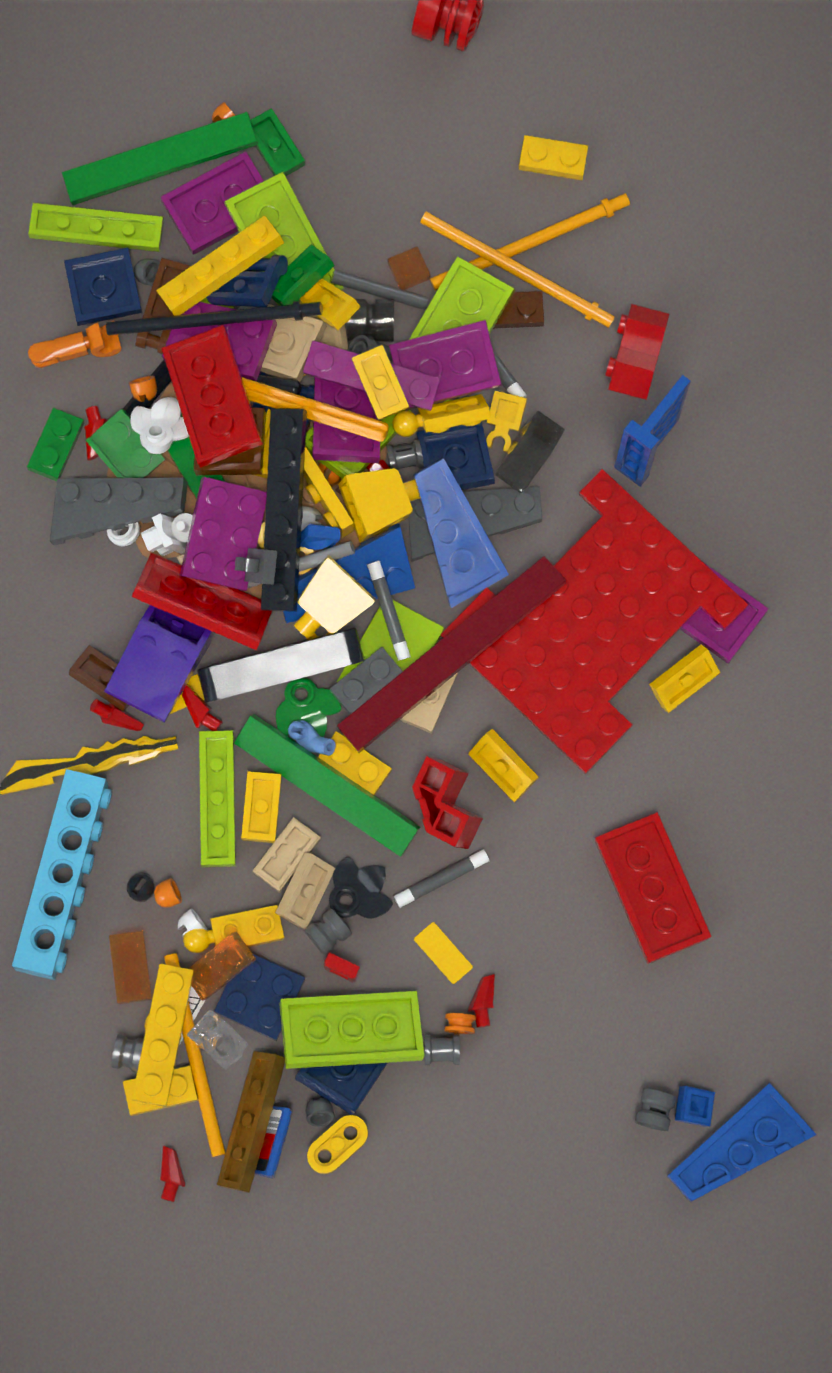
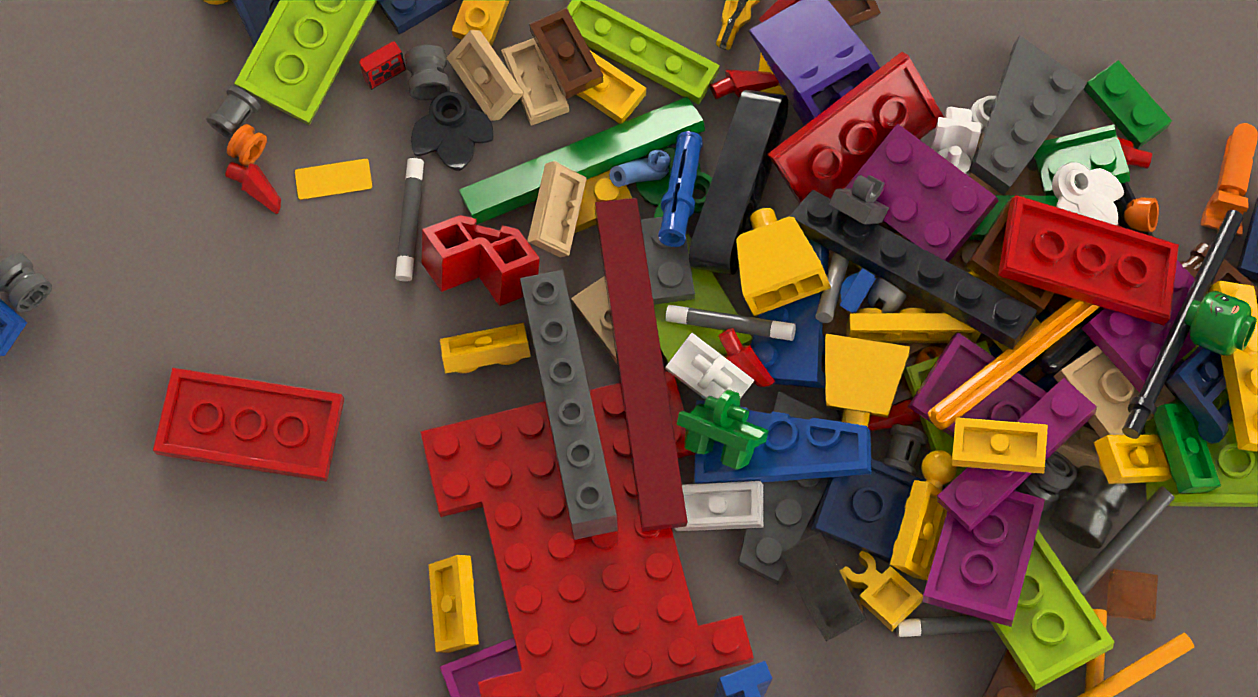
camera: 125 degrees right, 5 degrees down
(210, 290) = (1220, 323): none -> green head
(259, 836) = (566, 53): none -> reddish brown plate
(349, 680) = (678, 201): none -> blue pin
(381, 770) = (557, 209): none -> tan plate
(409, 587) = (744, 358): none -> red bar
(434, 602) = (706, 370): none -> white hips
(468, 569) = (722, 422): none -> green hips
(512, 546) = (723, 506): none -> white plate
(513, 677) = (569, 405): none -> dark grey brick

